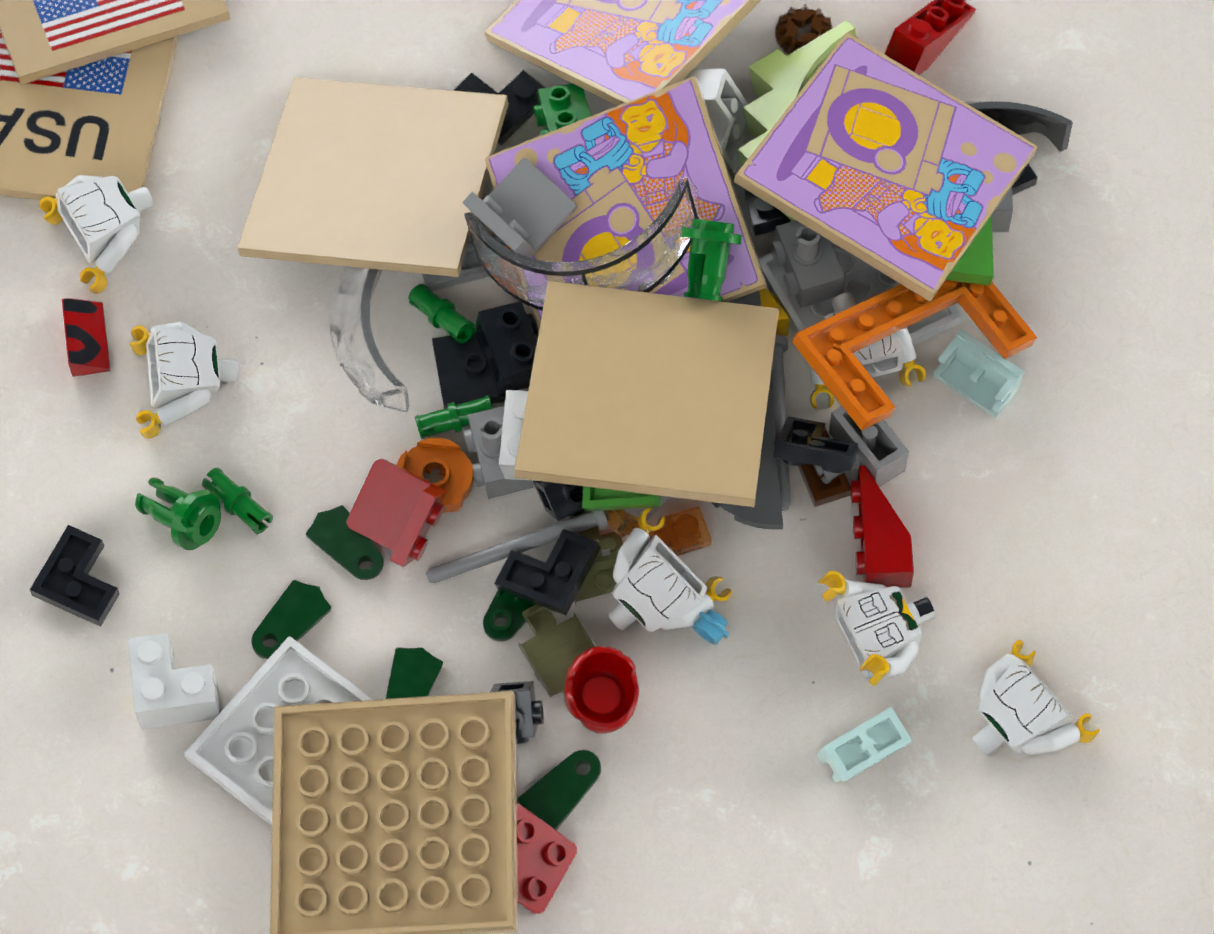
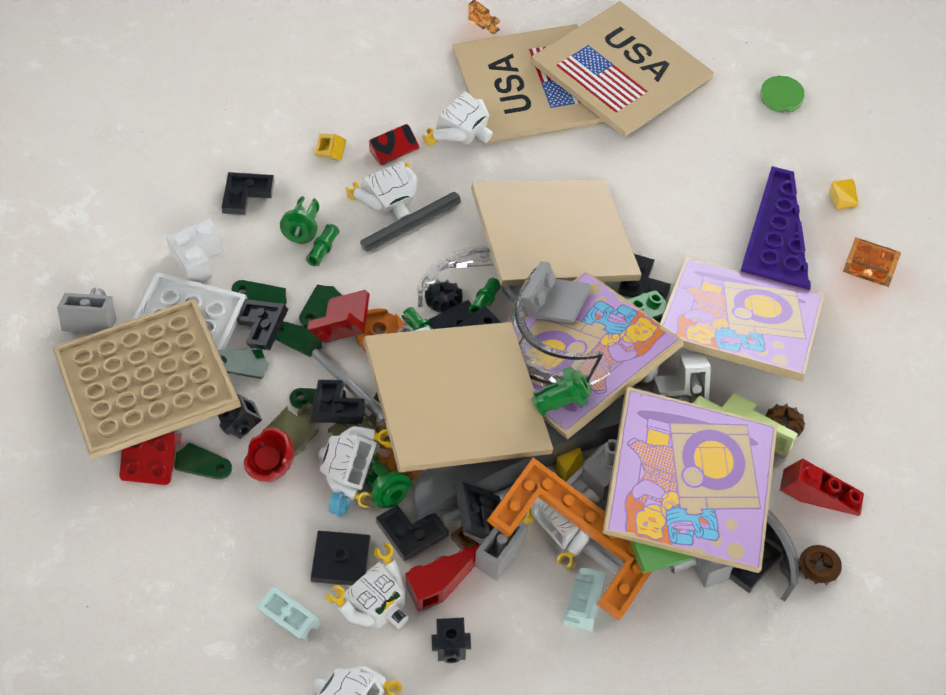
camera: 65 degrees right, 10 degrees down
(43, 427) = (330, 146): none -> yellow slope
(222, 873) = (86, 312): none -> light grey brick
(249, 367) = (410, 221): none -> dark grey axle
(354, 618) = (266, 322): none -> black plate
(390, 594) = (298, 338): none -> dark green piece
(419, 379) = (437, 302): none -> black gear
(717, 548) = (387, 486): none -> green piece
(794, 654) = (340, 557): none -> black plate
(798, 558) = (411, 538): none -> black plate
(983, 555) = (451, 640): none -> black brick
(1029, 72) = (830, 560): none -> reddish brown gear

